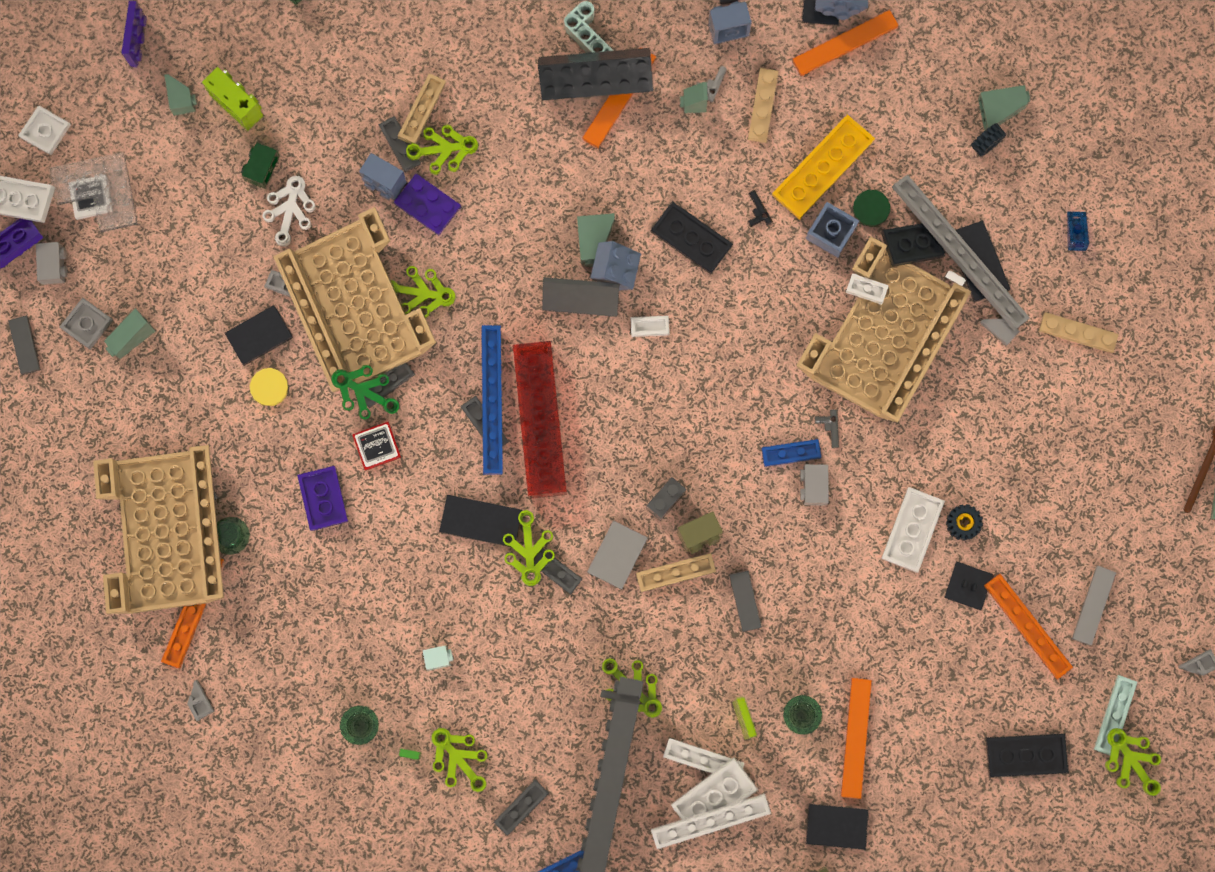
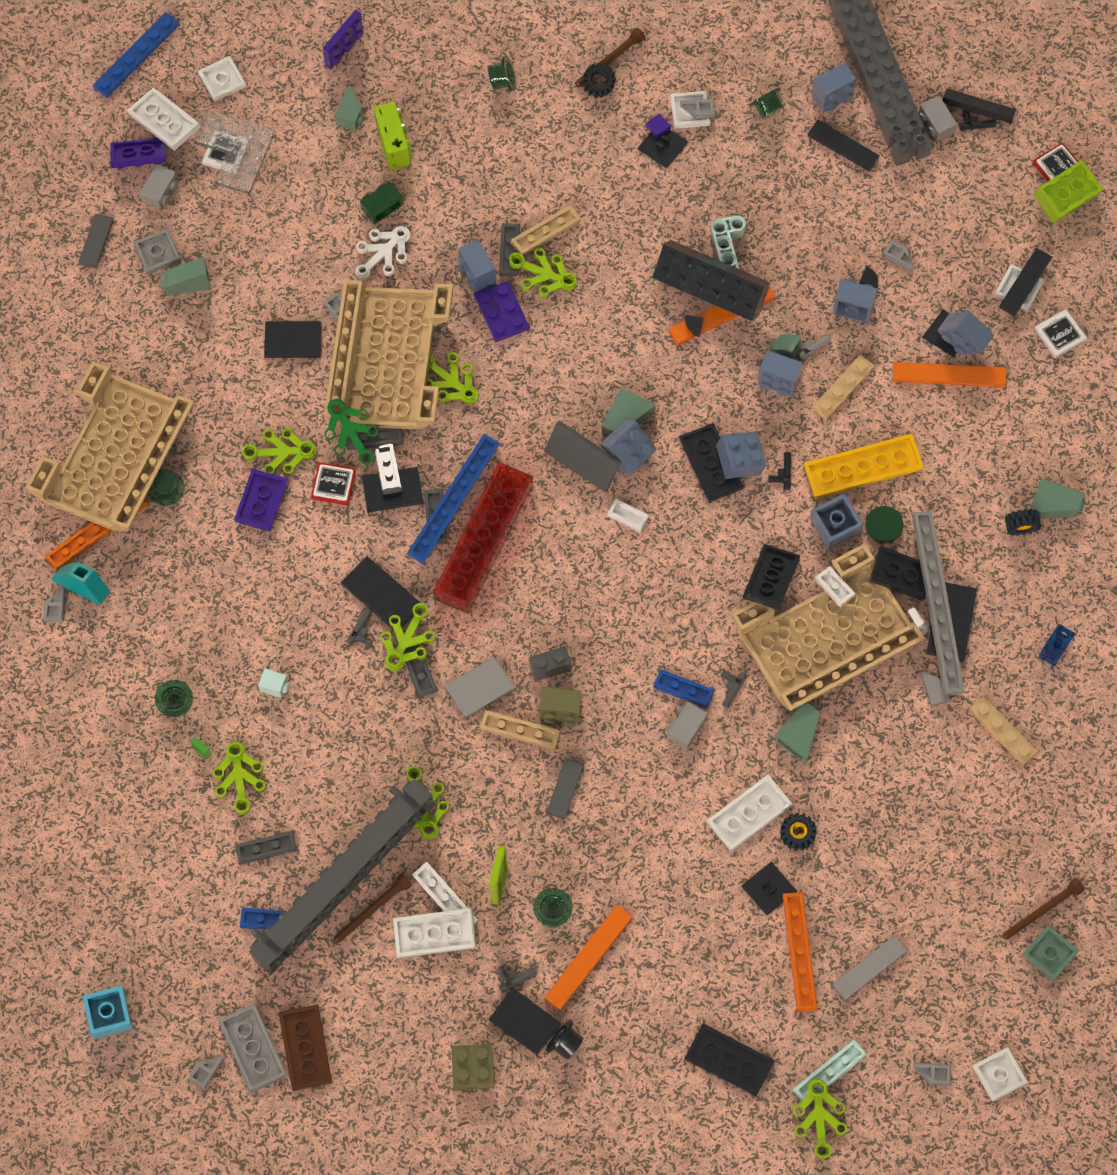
camera: 30 degrees right, 10 degrees down
(210, 666) = (82, 581): none -> teal slope
(269, 387) = (274, 385): light yellow tile -> none
(313, 442) = (282, 451): none -> lime plant
(417, 405) = (387, 469): none -> tile
(432, 421) = (410, 494): none -> black tile
(483, 564) = (361, 630): none -> dark grey hose
(603, 121) = (694, 324): none -> black tile
(658, 770) = (400, 884): none -> reddish brown piece
(705, 125) = (779, 373): none -> sand blue brick
(710, 821) = (418, 950): white tile -> none
(716, 217) = (741, 455): none -> sand blue brick
(804, 794) = (513, 978): none -> dark grey hose
(808, 311) = (771, 577): none -> black tile
(883, 825) = (565, 1041): none -> black piece
(913, 434) = (799, 731): none -> sand green slope

